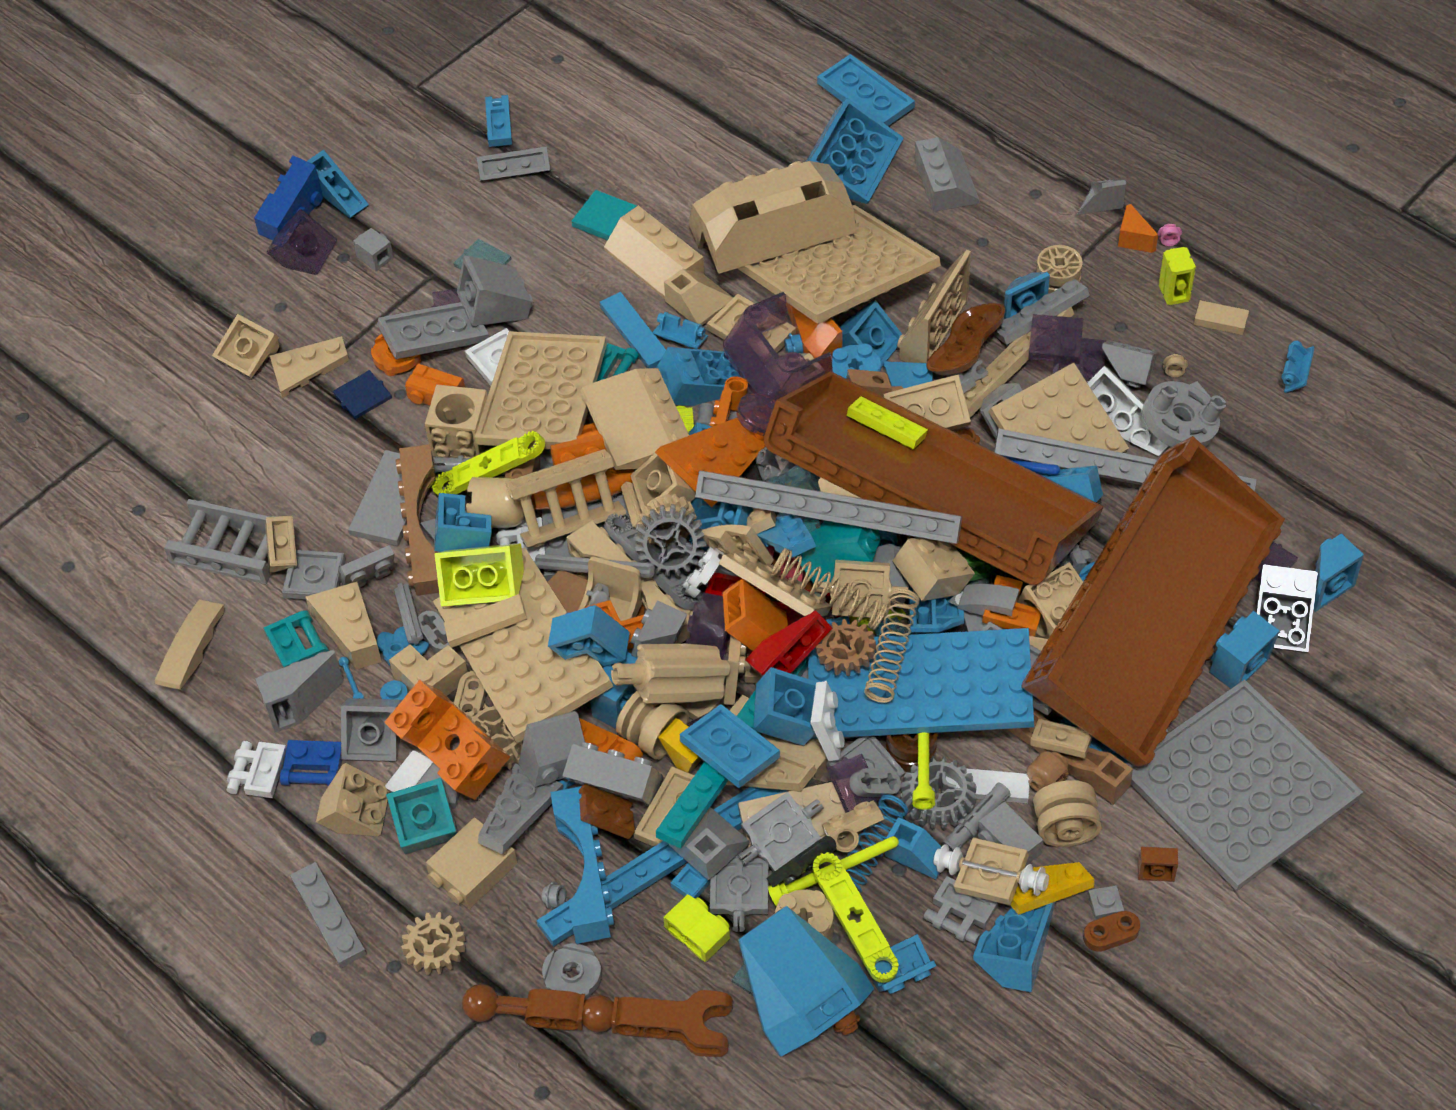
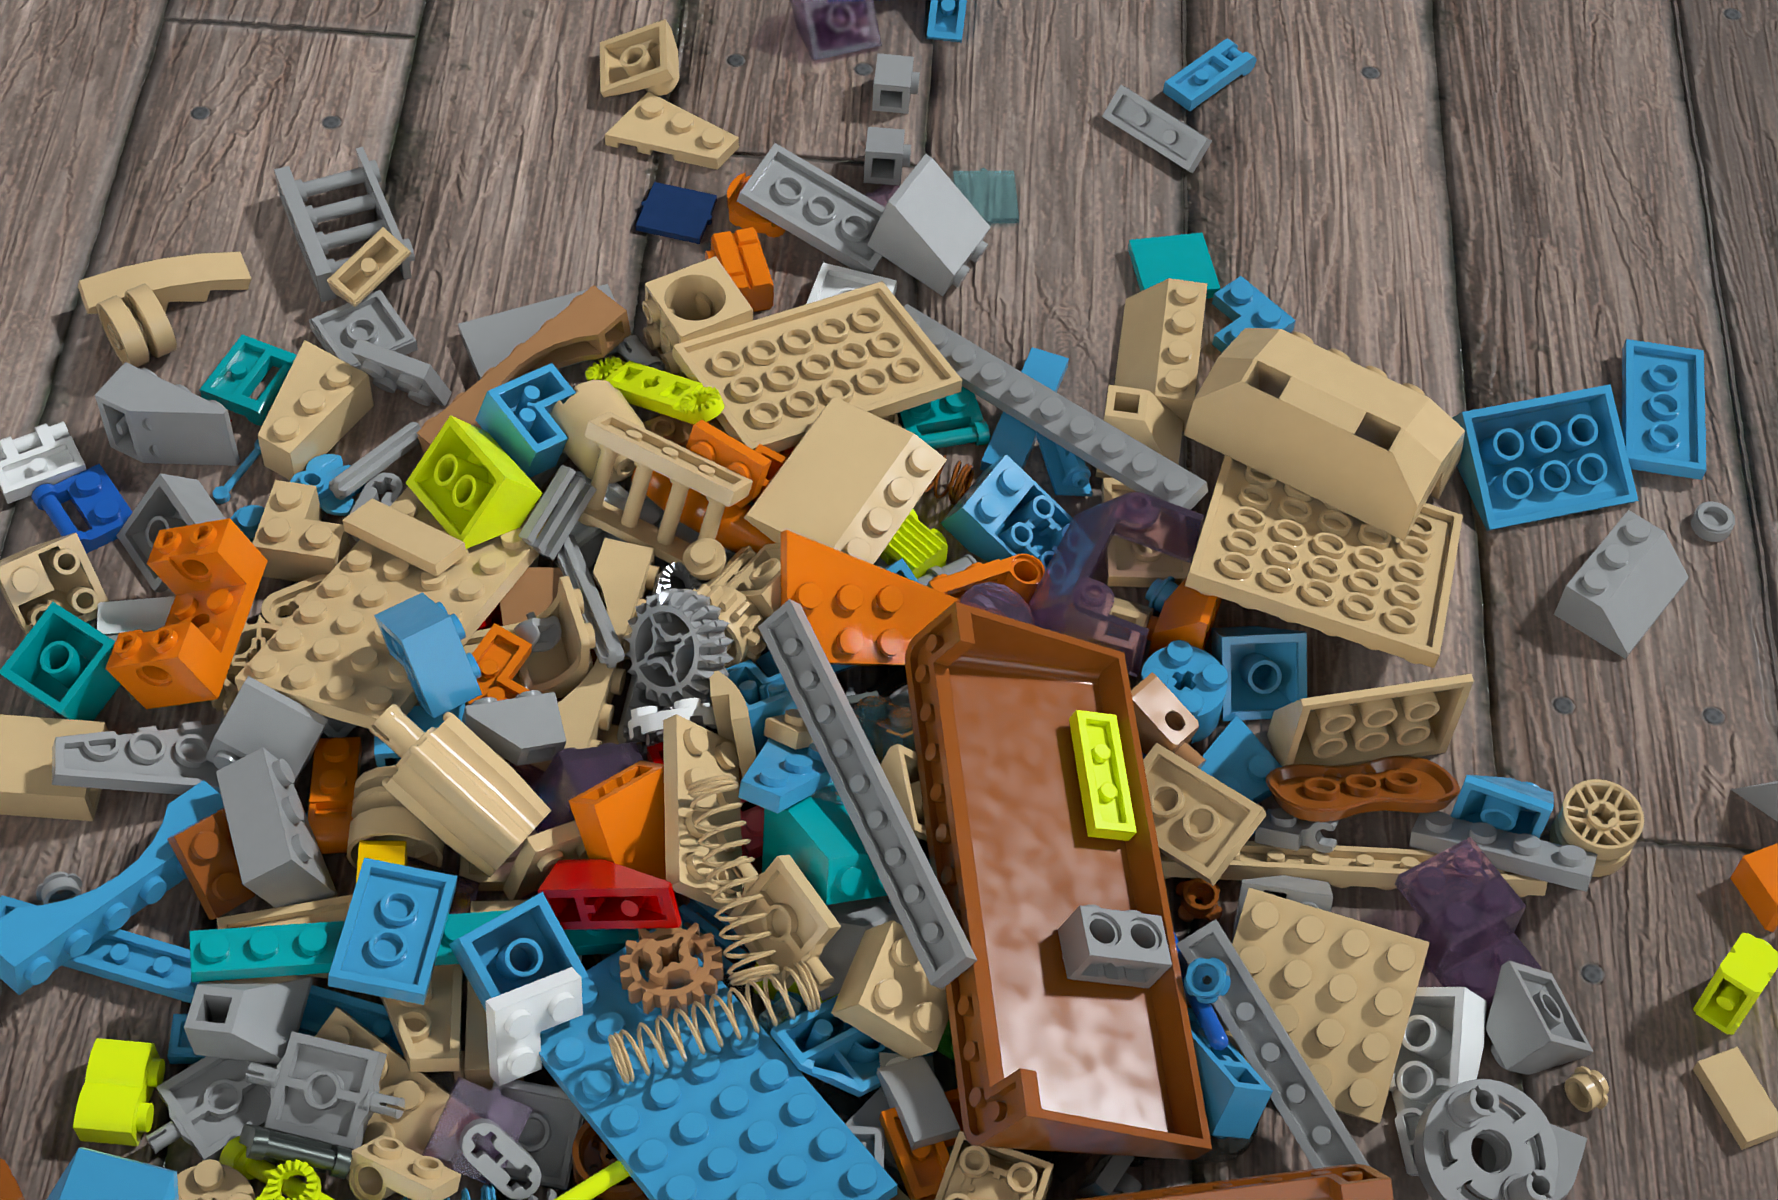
camera: 45 degrees right, 0 degrees up
(215, 670) = (137, 326): none -> tan wheel
(420, 282) = (885, 156): none -> light grey brick
(533, 546) = (561, 516): none -> light grey tile
(619, 502) = (704, 558): none -> tan plate
(668, 205) = (1247, 309): none -> dark azure plate
(668, 313) = (1063, 420): none -> light grey plate
(939, 119) = (1713, 521): none -> light grey tile
(980, 473) = (1114, 946): none -> light grey brick
(1026, 446) = (1207, 967): none -> dark azure plate

